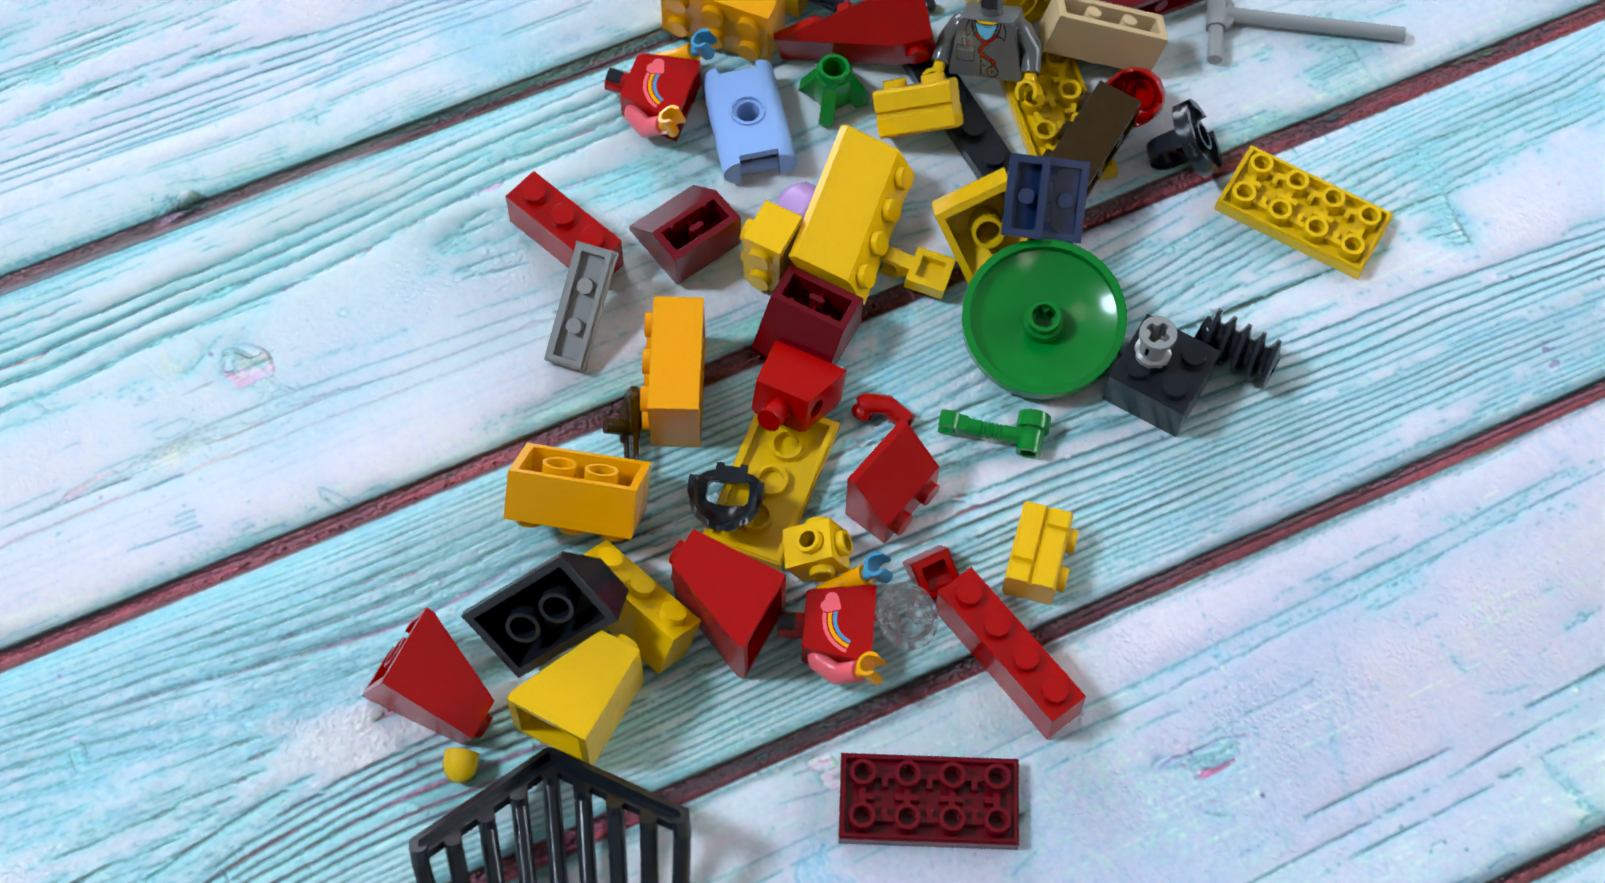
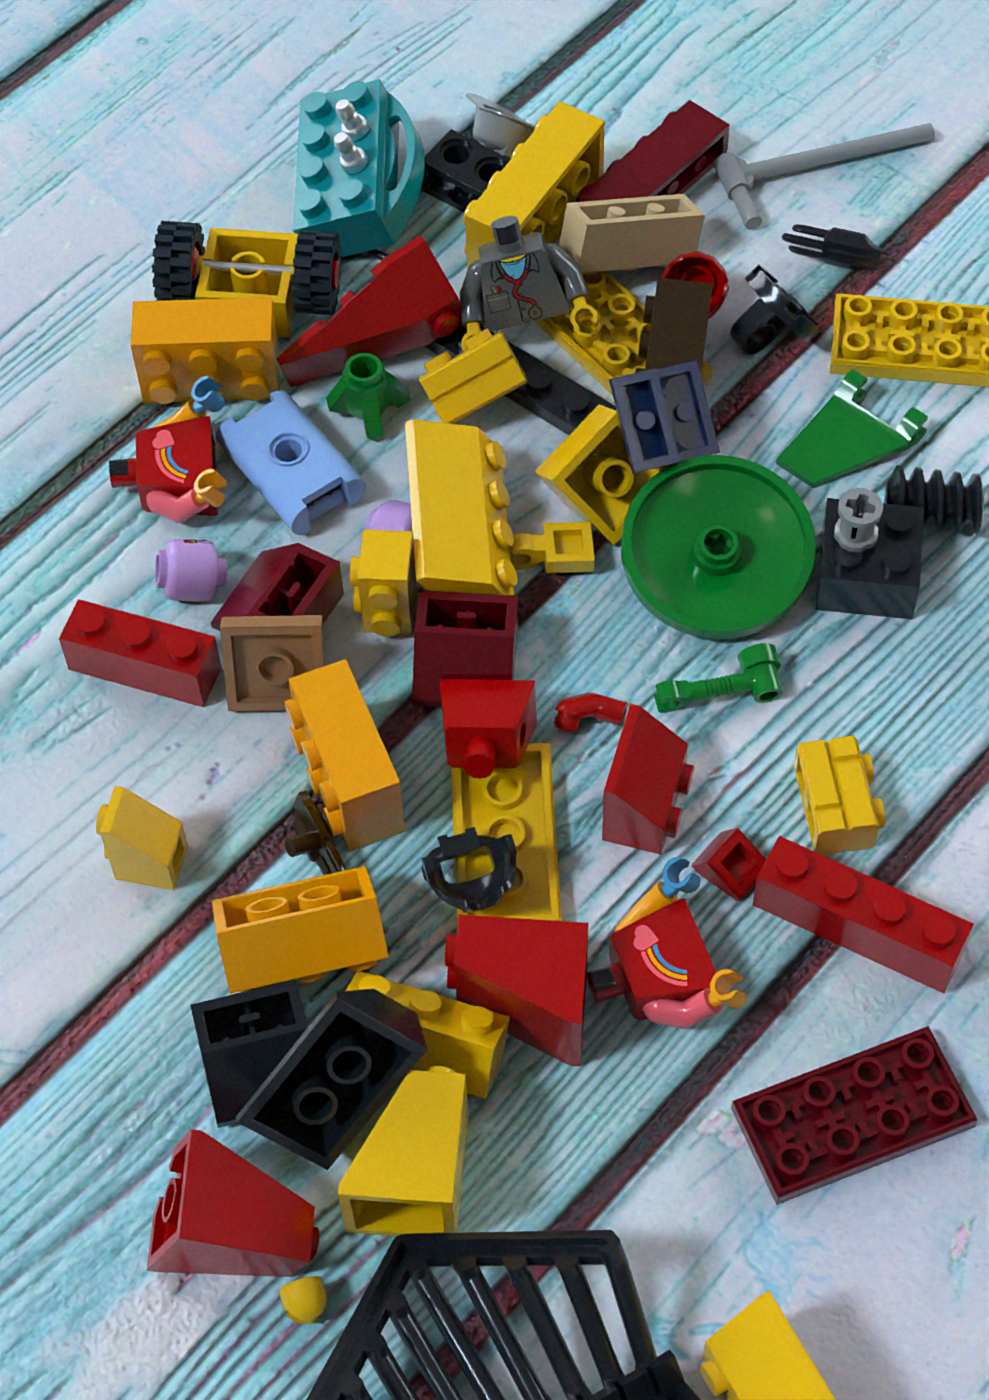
camera: 20 degrees left, 5 degrees down
(497, 376) = (141, 840): none -> yellow slope
(499, 554) = (245, 1040): none -> black slope
(581, 306) = (201, 726): light grey tile -> none
(631, 178) = (189, 570): none -> lavender head
(652, 269) = (264, 654): none -> medium nougat tile
(817, 549) = (597, 886): yellow brick -> none
(920, 610) = (740, 910): clear gear -> none
(1199, 268) = (847, 437): none -> green flag
(1272, 106) = (839, 247): none -> black piece

